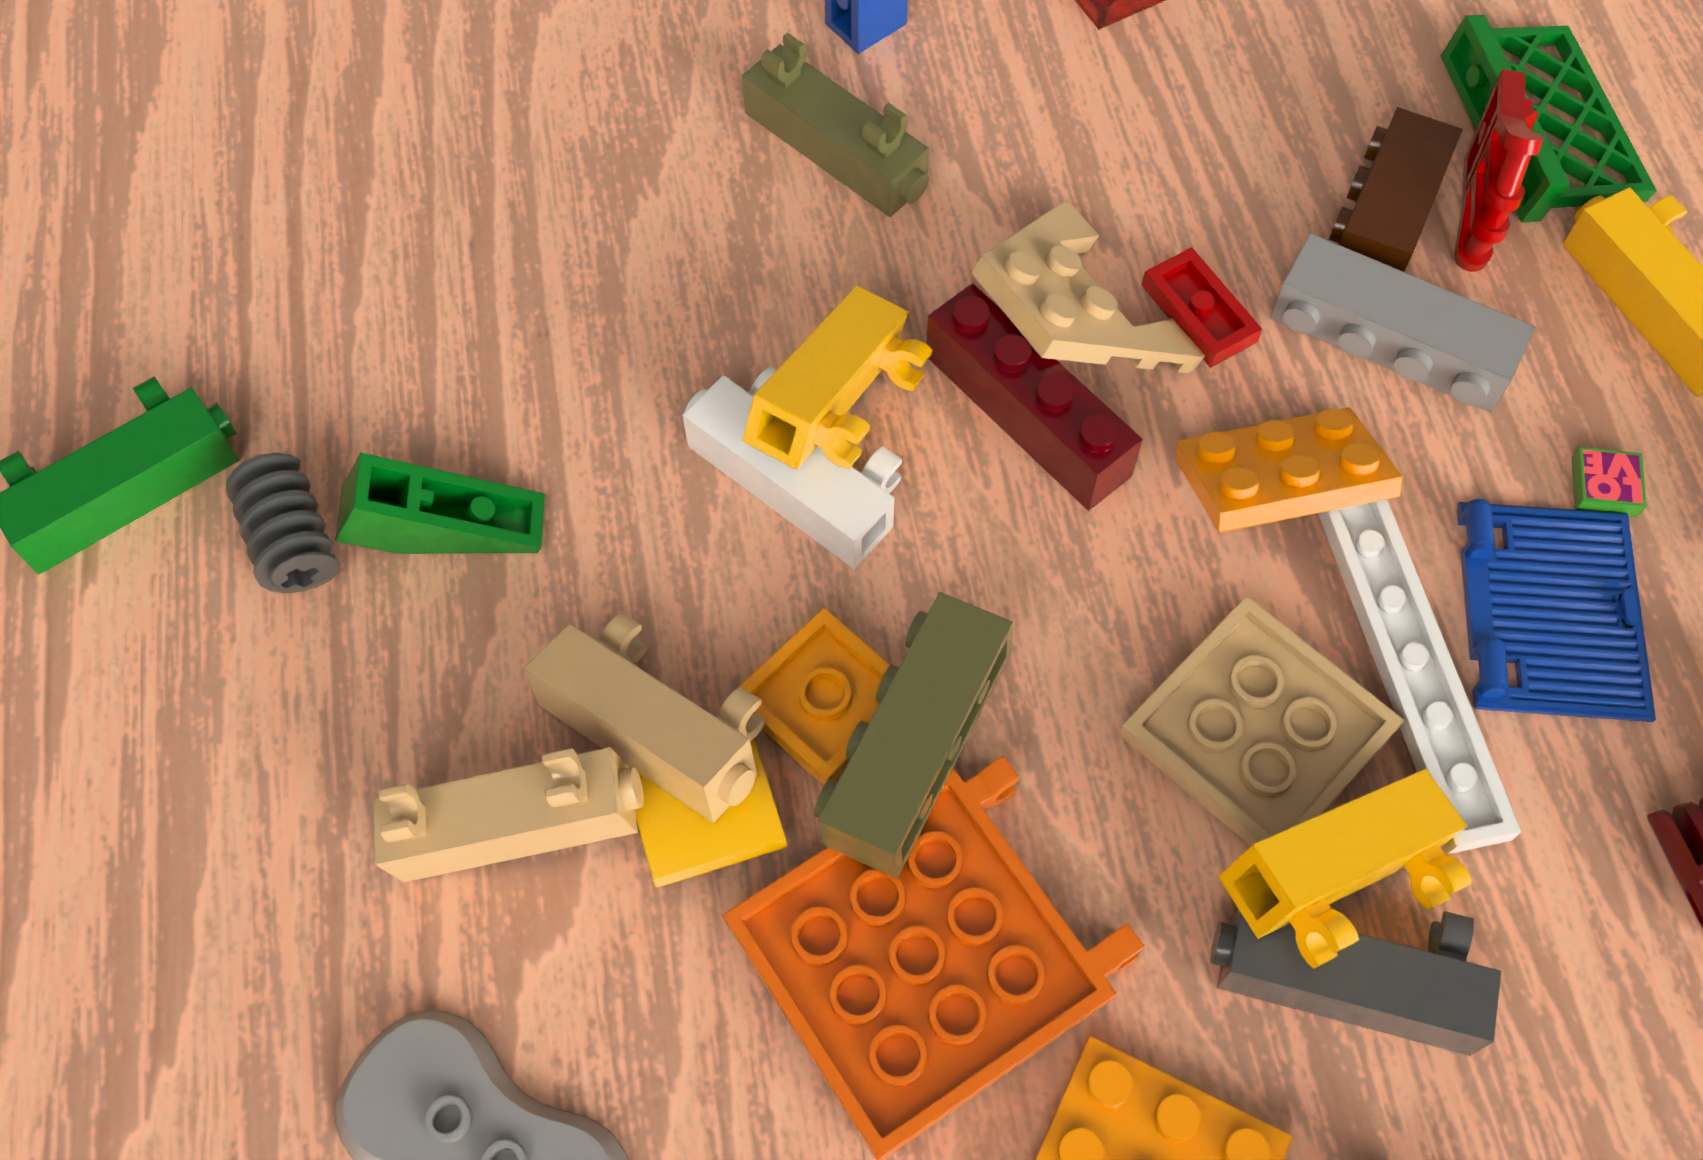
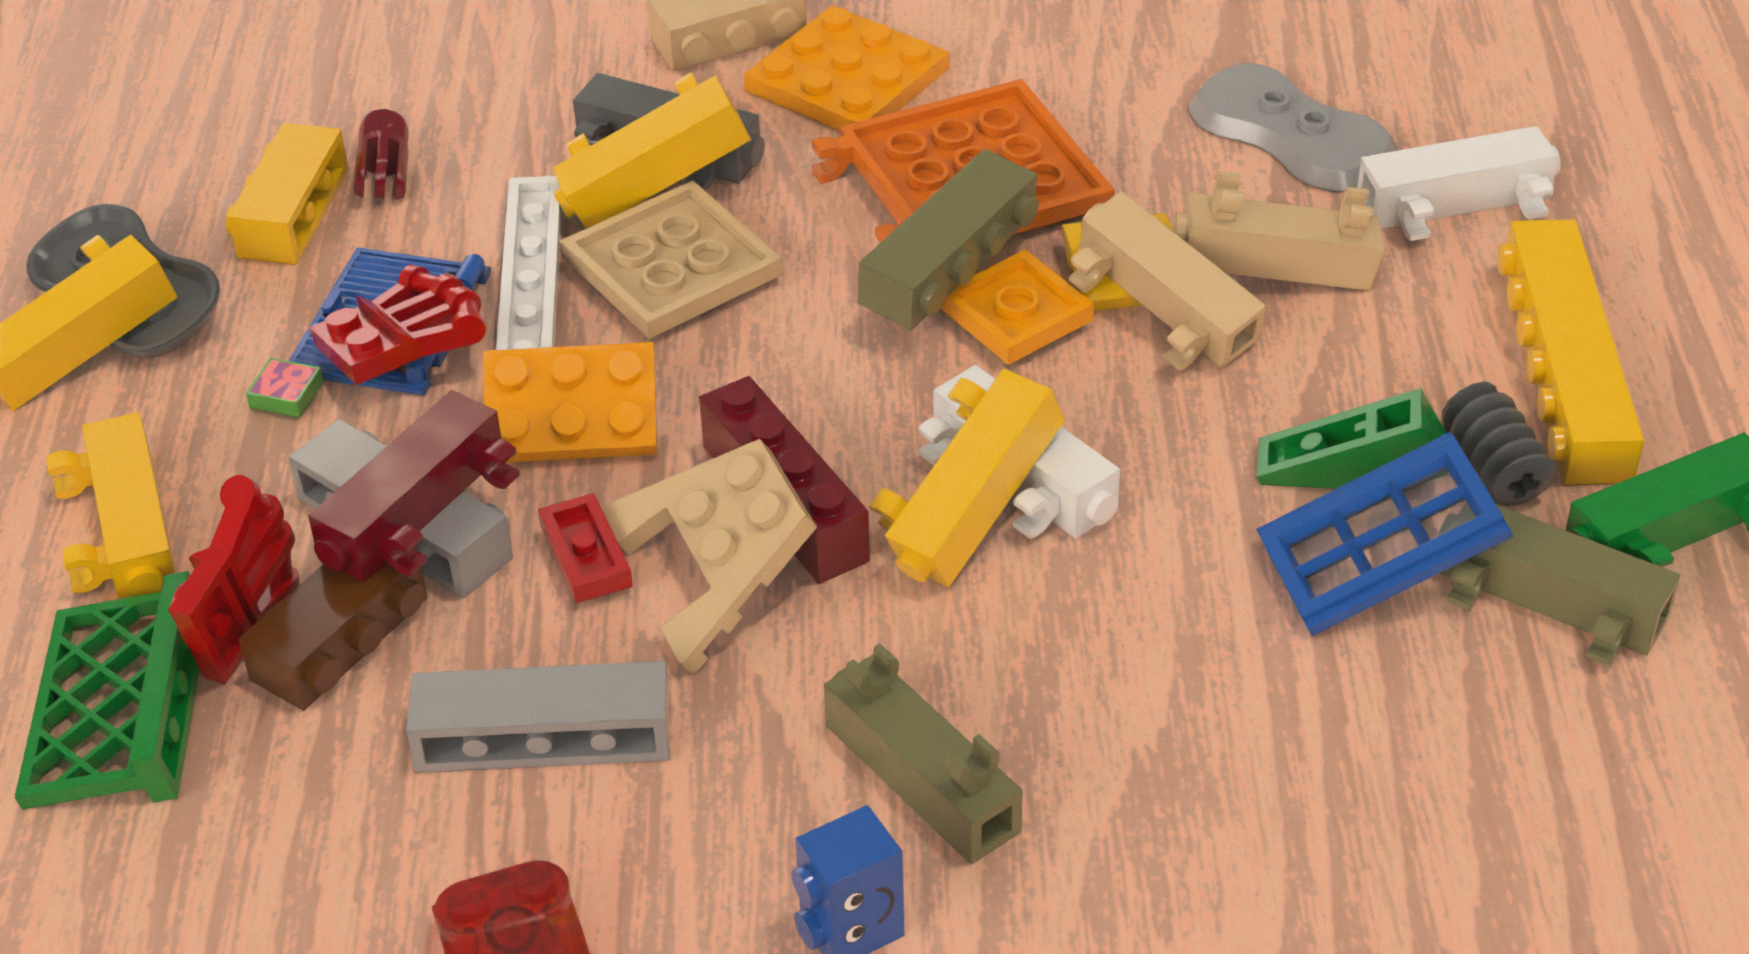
camera: 170 degrees left, 20 degrees down
(174, 711) = (1570, 353): none -> yellow brick
(253, 380) = (1572, 582): none -> olive brick
(254, 1013) = (1460, 179): none -> white brick
(414, 380) = (1383, 533): none -> blue piece
(1170, 126) = (539, 716): none -> light grey brick
(1380, 288) = (407, 485): none -> dark red brick
(1548, 522) = (405, 323): none -> red plate

